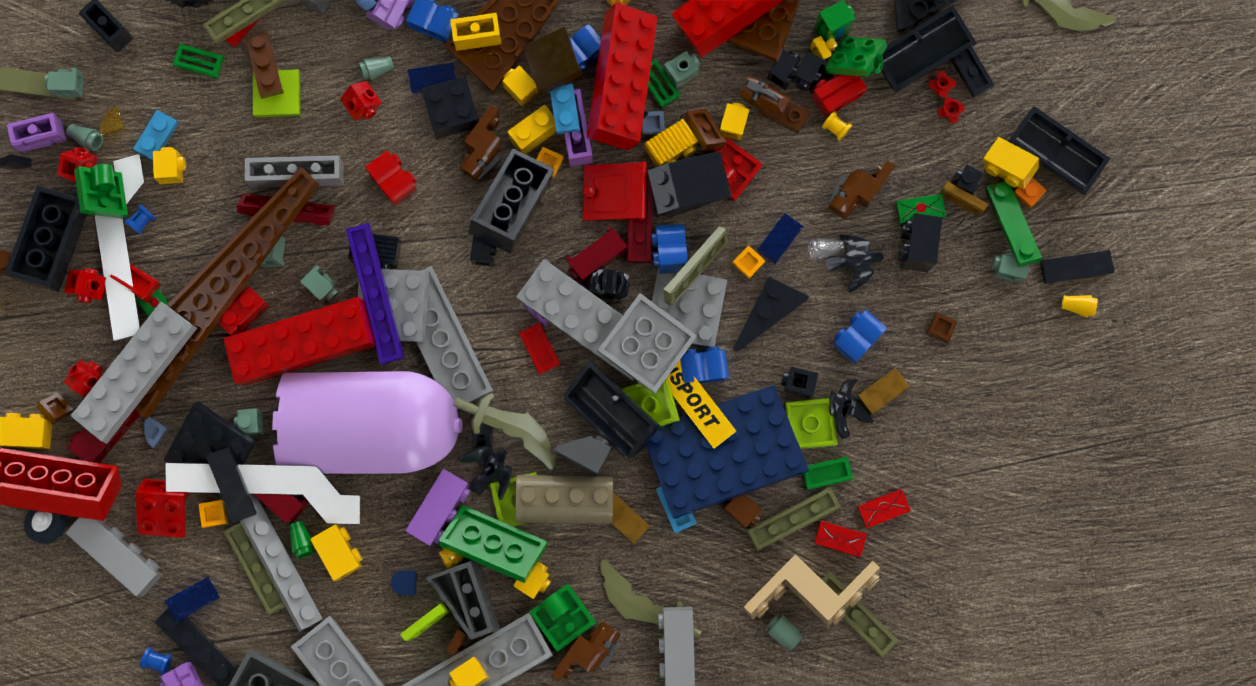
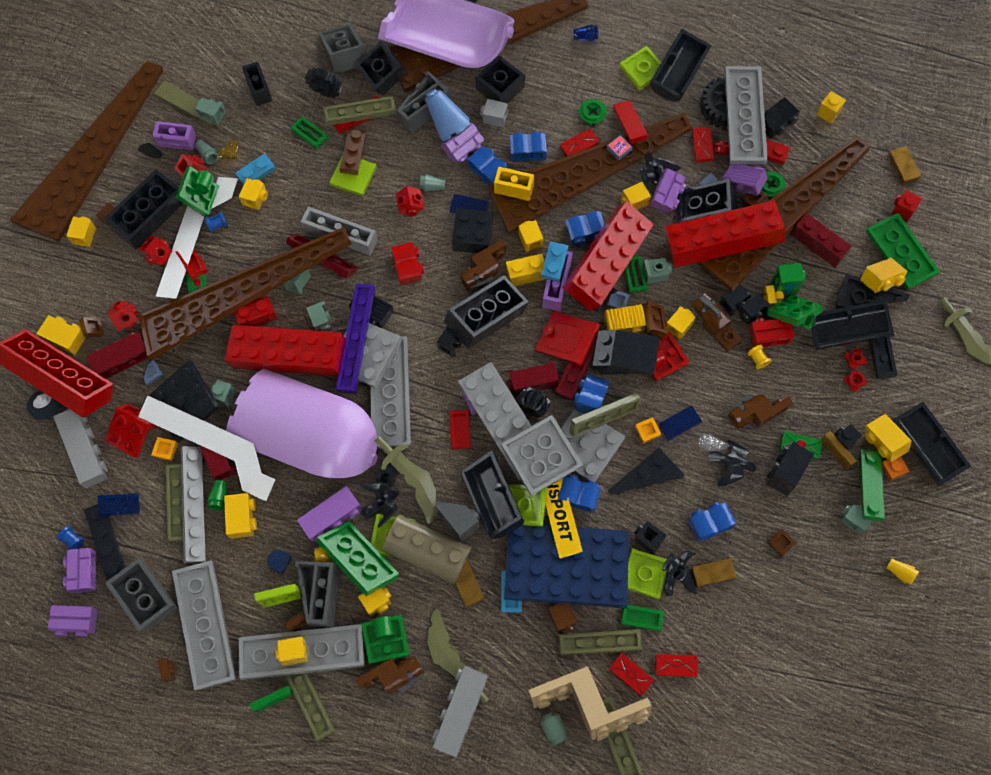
camera: 30 degrees right, 10 degrees down
(133, 372) = (157, 322): light grey plate -> none
(231, 484) = (186, 430): black tile -> none
(551, 159) = (530, 295): light orange plate -> none
(552, 61) = (561, 225): dark brown tile -> none
(1077, 267) = (912, 541): black tile -> none

